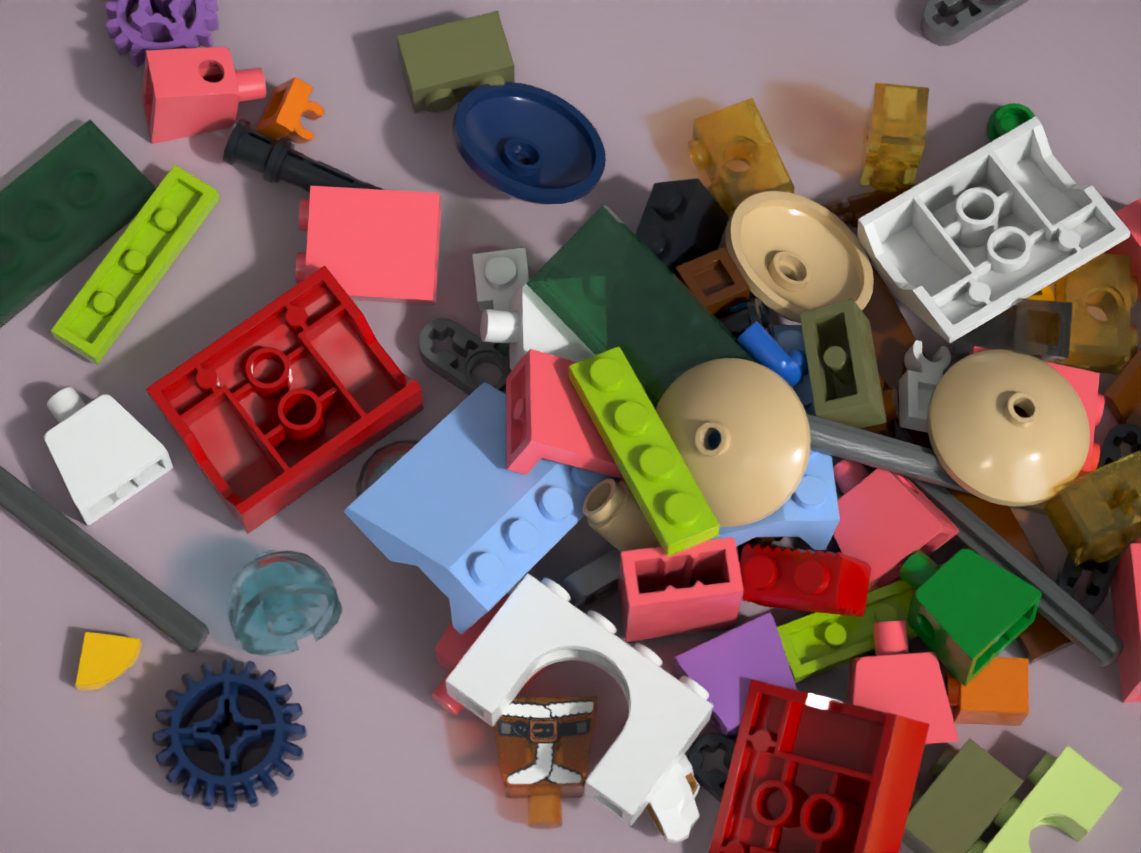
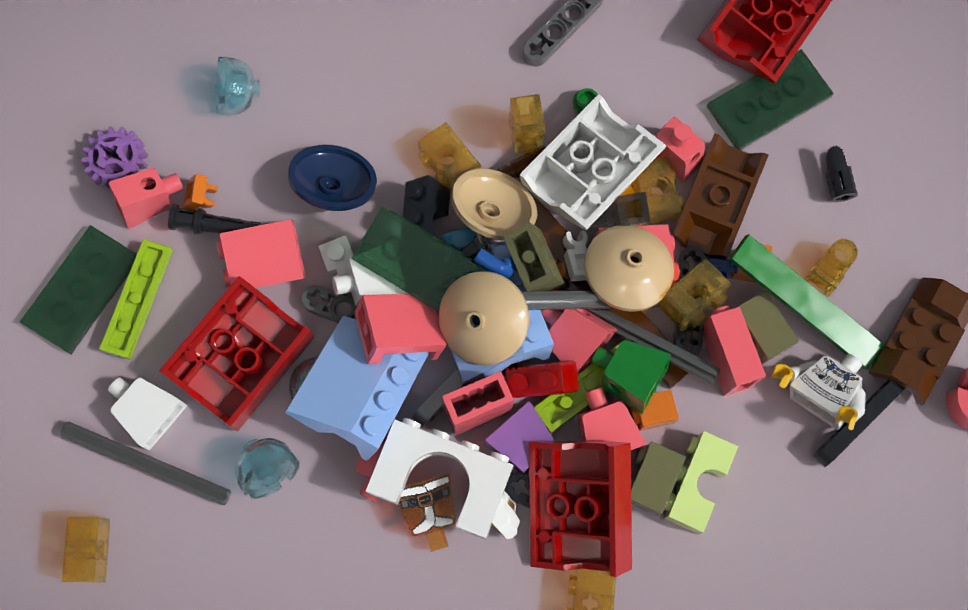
camera: 15 degrees left, 5 degrees up
(105, 659) = (178, 522): yellow tile -> none
(205, 734) = (259, 560): dark blue gear -> none
(454, 59) = (280, 141): olive brick -> none
(618, 517) = (438, 373): tan brick -> none
(643, 451) = (439, 336): lime plate -> none
(714, 281) = (452, 230): reddish brown tile -> none

